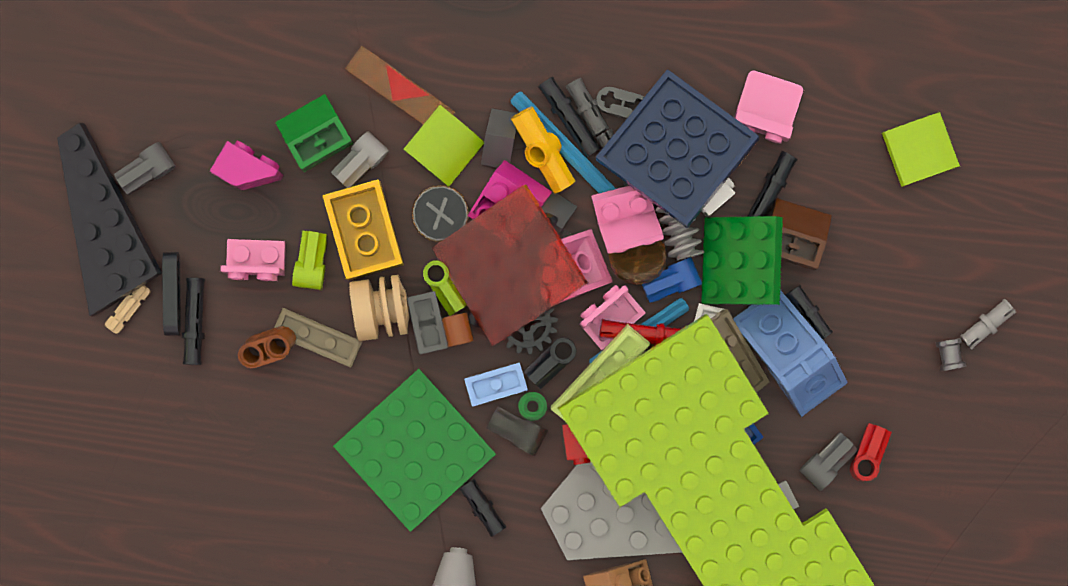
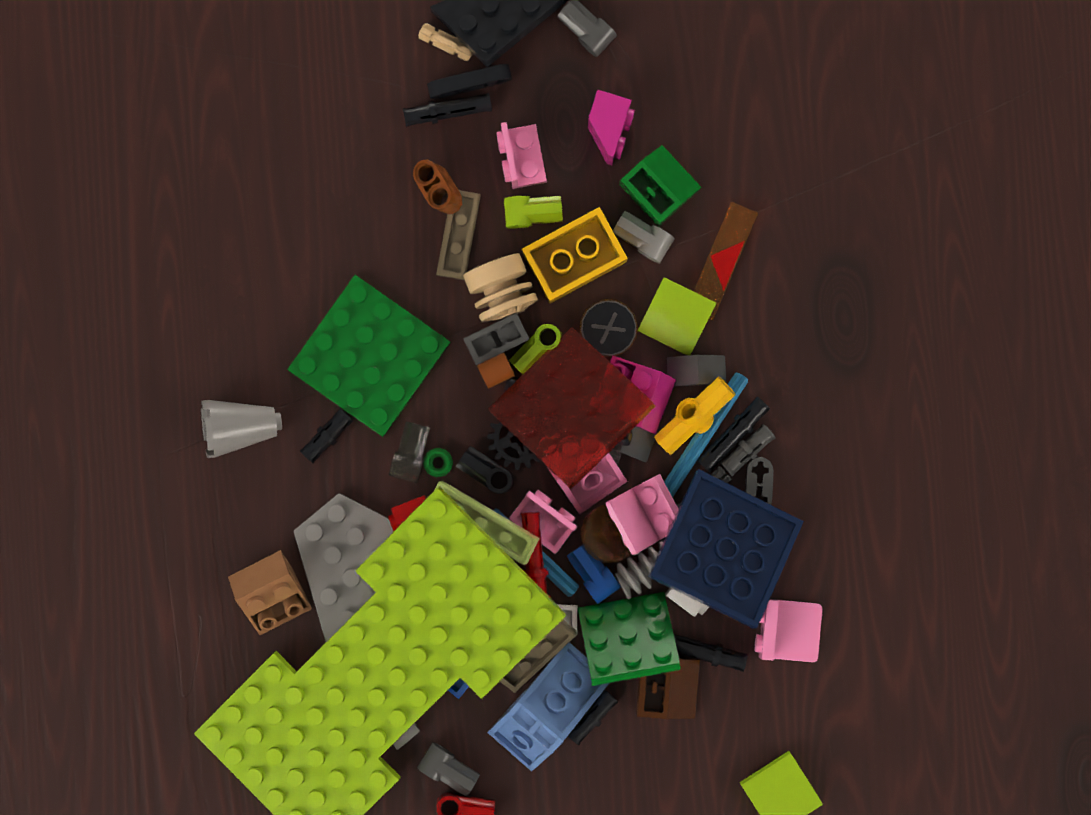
camera: 80 degrees right, 0 degrees up
(496, 384) = (451, 421): light blue plate -> none

